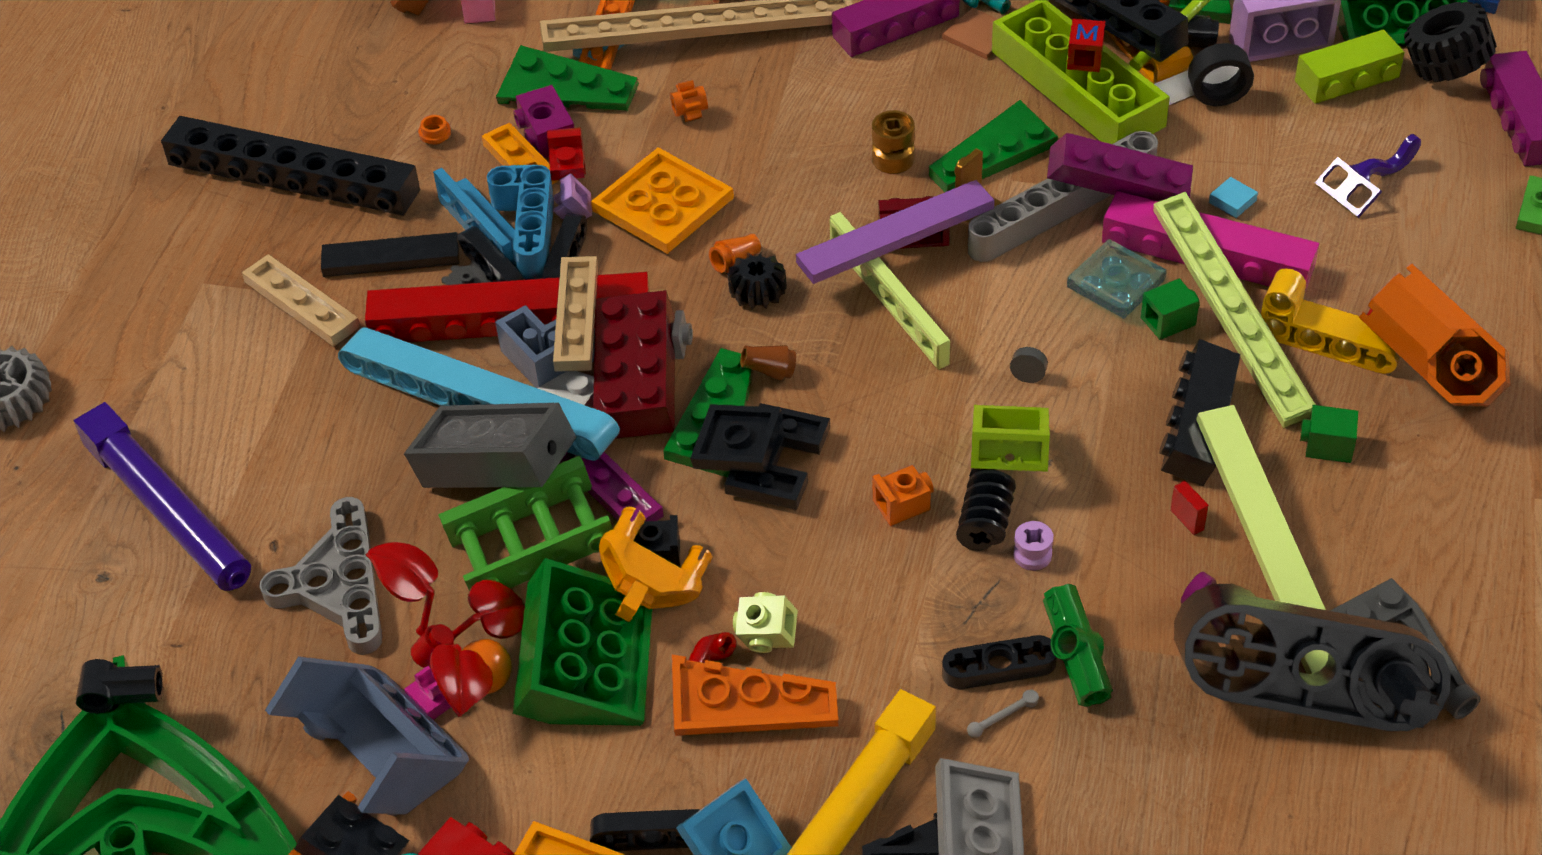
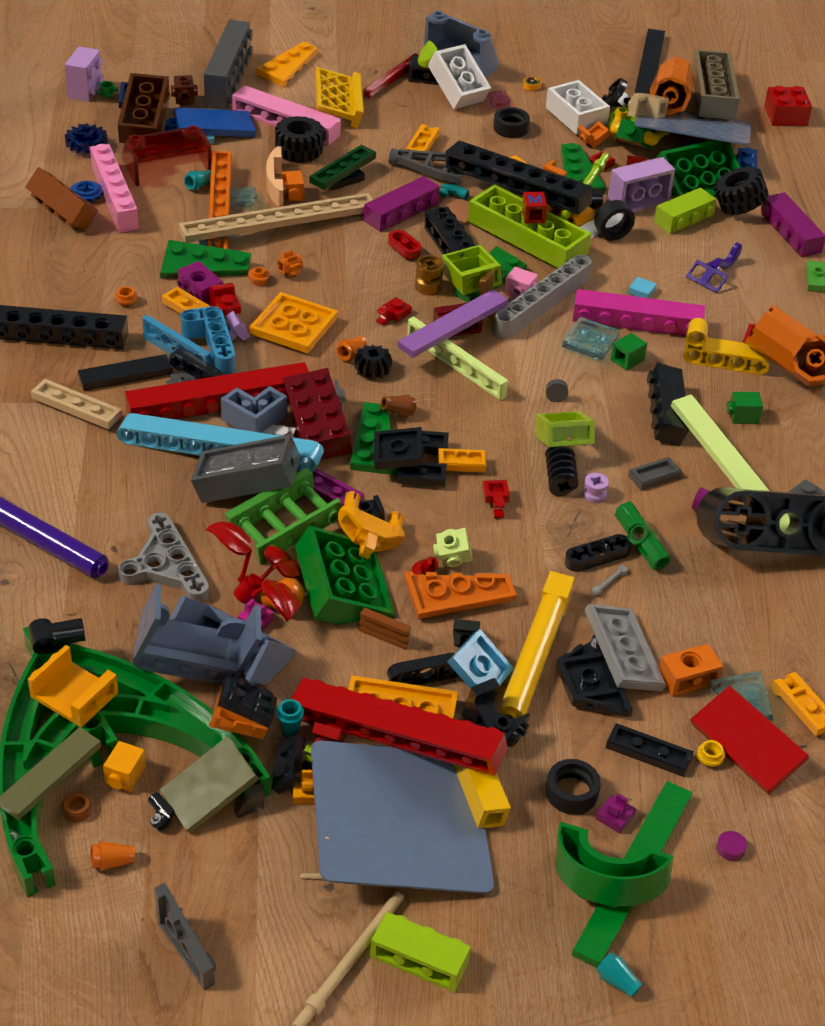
camera: 20 degrees left, 5 degrees down
(108, 778) = (71, 689): none -> light orange panel
(298, 738) = (193, 649): none -> sand blue windscreen
(567, 243) = (243, 351): black beam -> none
(575, 314) = (274, 387): tan plate -> none
(614, 746) = (385, 628): none -> dark orange tile
(639, 115) = (258, 276): none -> orange plate
(733, 766) = (464, 628): none -> pearl dark grey tile
(821, 194) = (393, 309): none -> red plate
(838, 468) = (463, 460): none -> light orange plate
(869, 534) = (497, 493): none -> red plate
(877, 83) = (404, 244): none -> red plate
(902, 494) = (510, 466): orange brick -> none
(953, 82) = (446, 230): none -> black brick
(967, 121) = (473, 257): none -> lime window
(1028, 167) = (519, 281): none -> bright pink brick
(1116, 168) = (574, 274): magenta brick -> none
(1142, 531) = (654, 473): none -> dark grey tile
(1189, 507) = (680, 455): red tile -> none
(1235, 310) = (668, 346): yellowish green tile -> none

